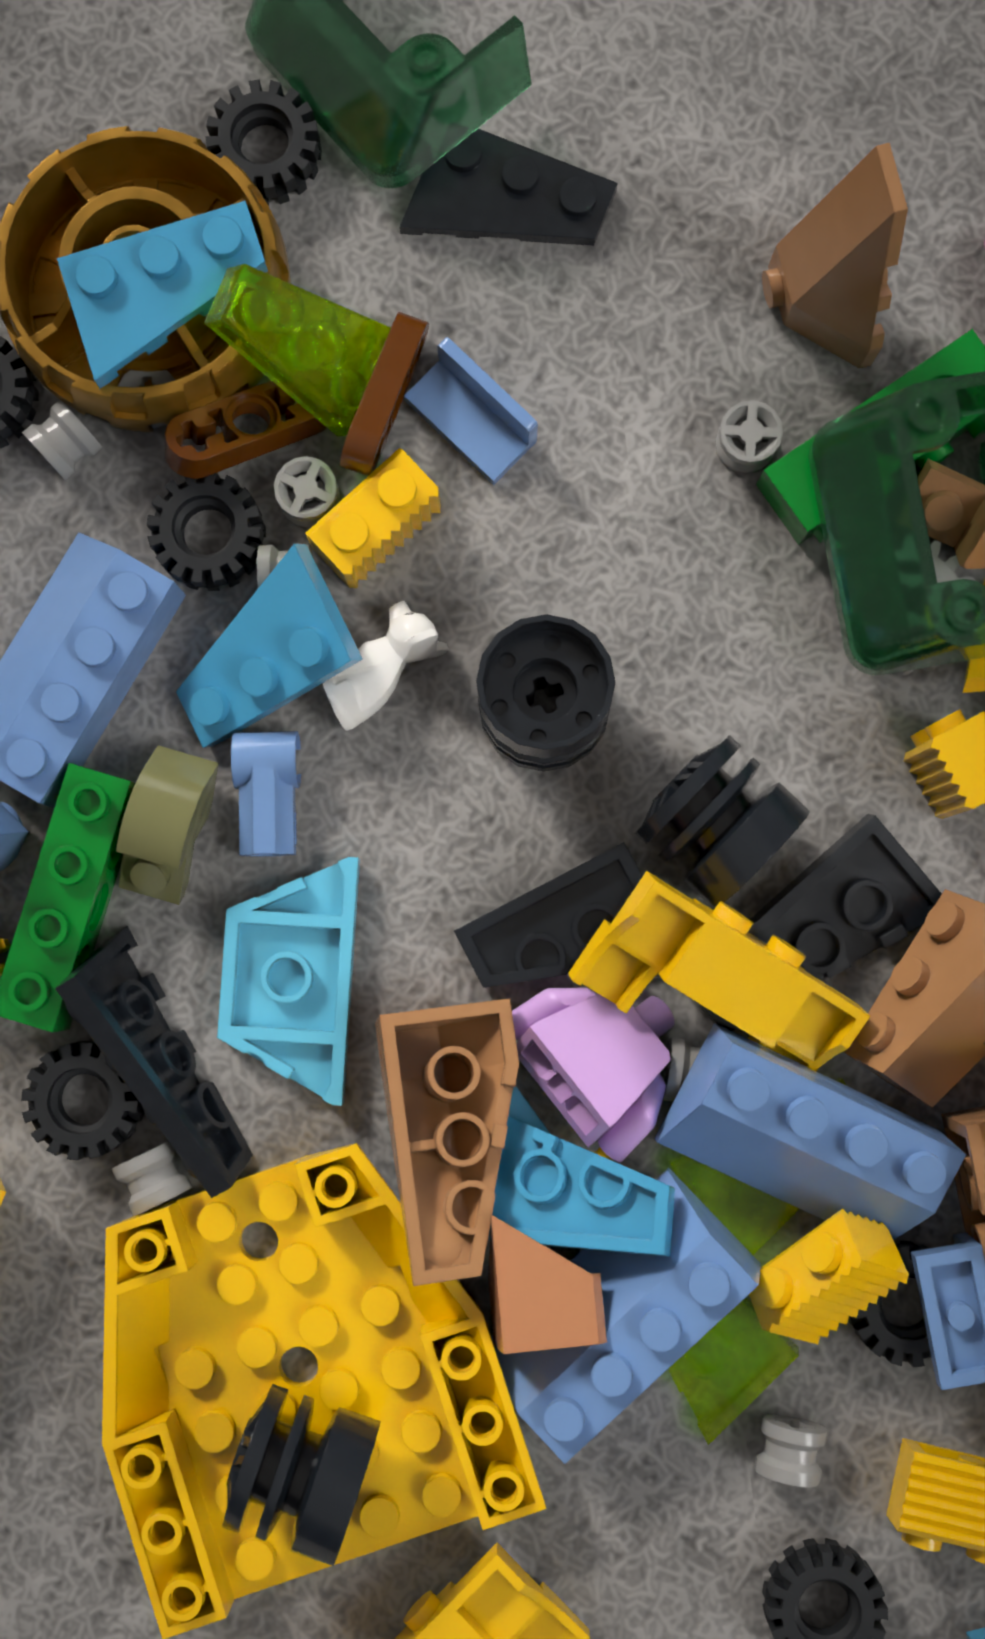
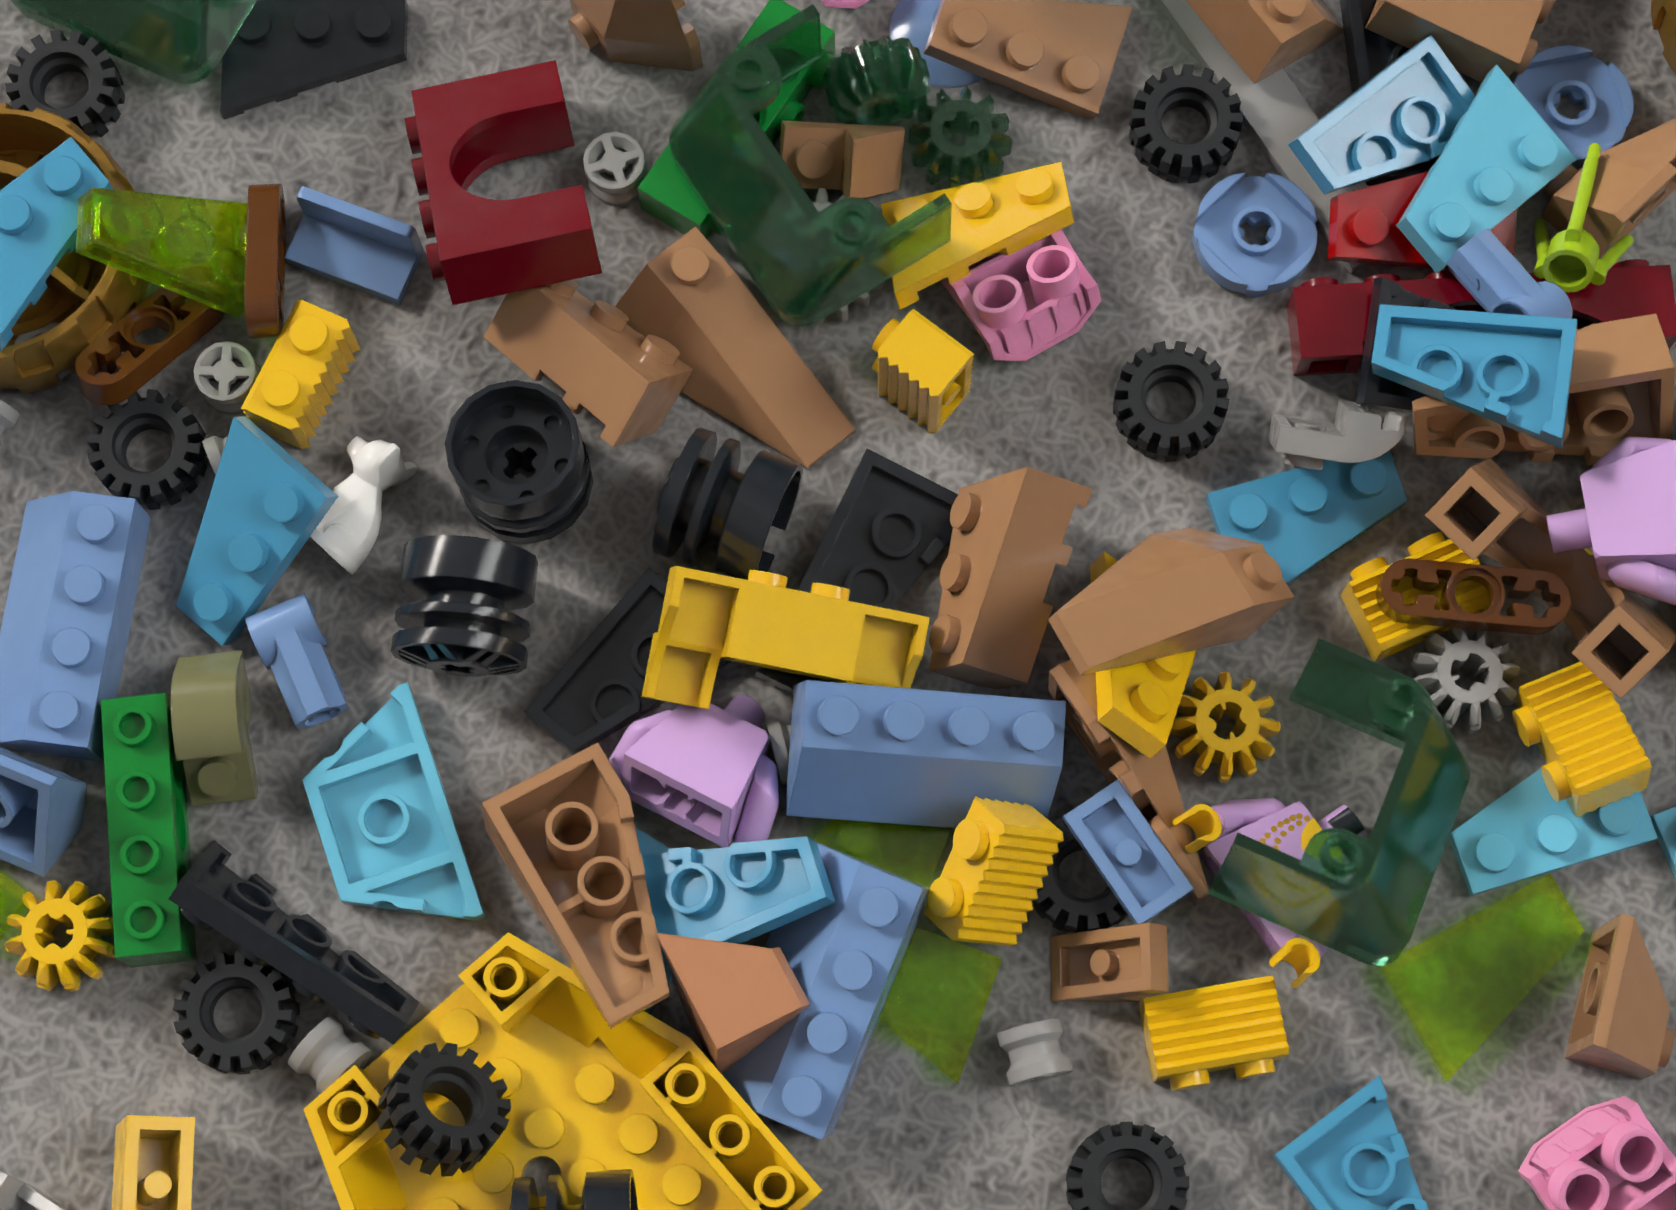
camera: 25 degrees left, 10 degrees down
(266, 1286) = (425, 1134): none -> black tyre
(438, 812) = (465, 605): none -> black wheel
(598, 471) = (489, 243): none -> dark red arch
(650, 613) = (591, 356): none -> medium nougat wedge
(774, 650) = (735, 349): none -> medium nougat wedge
(897, 1403) = (1110, 964): none -> medium nougat slope

